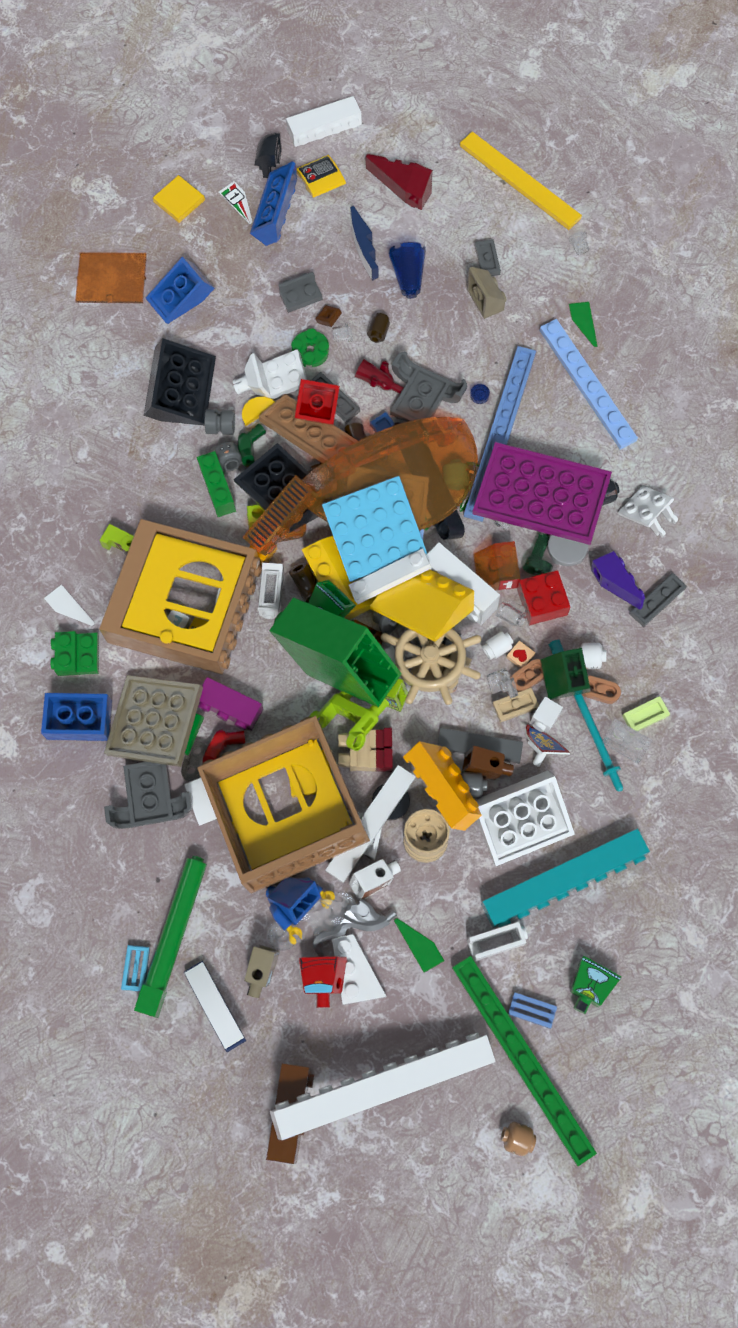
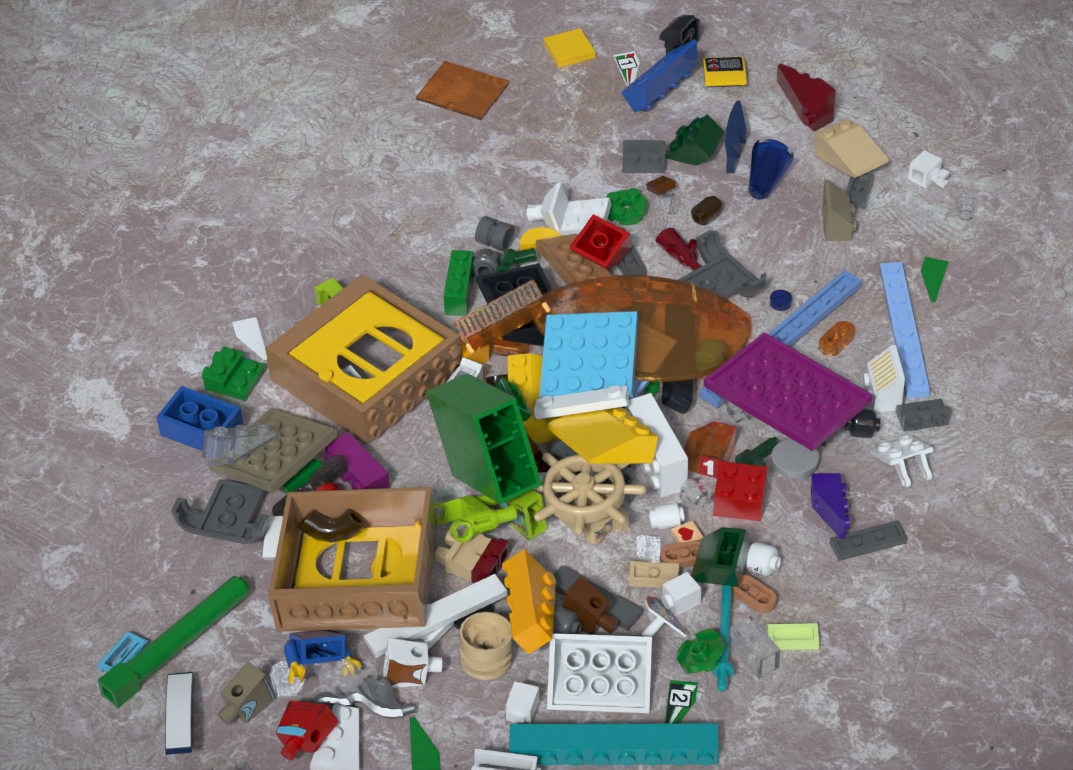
camera: 25 degrees right, 25 degrees down
(122, 729) = (232, 444): none -> clear slope
(179, 291) = (523, 118): blue slope -> none
(179, 384) = (473, 190): black slope -> none
(209, 729) = (328, 471): none -> clear smoke plate
(243, 778) = (331, 529): none -> dark brown cylinder
(324, 121) = (754, 28): white brick -> none
(335, 260) = (695, 141): none -> dark green slope
(464, 222) = (848, 148): none -> tan slope
(478, 873) = (522, 703): none -> white brick
(520, 180) = (935, 137): yellow tile -> none
(533, 217) = (926, 169): none -> white brick
(541, 412) = (836, 338): none -> clear orange plate
(591, 812) = (680, 700): none -> sticker
(599, 772) = (701, 652): none -> green plate
(604, 444) = (885, 380): none -> white slope
(642, 462) = (923, 414): none -> dark grey bracket

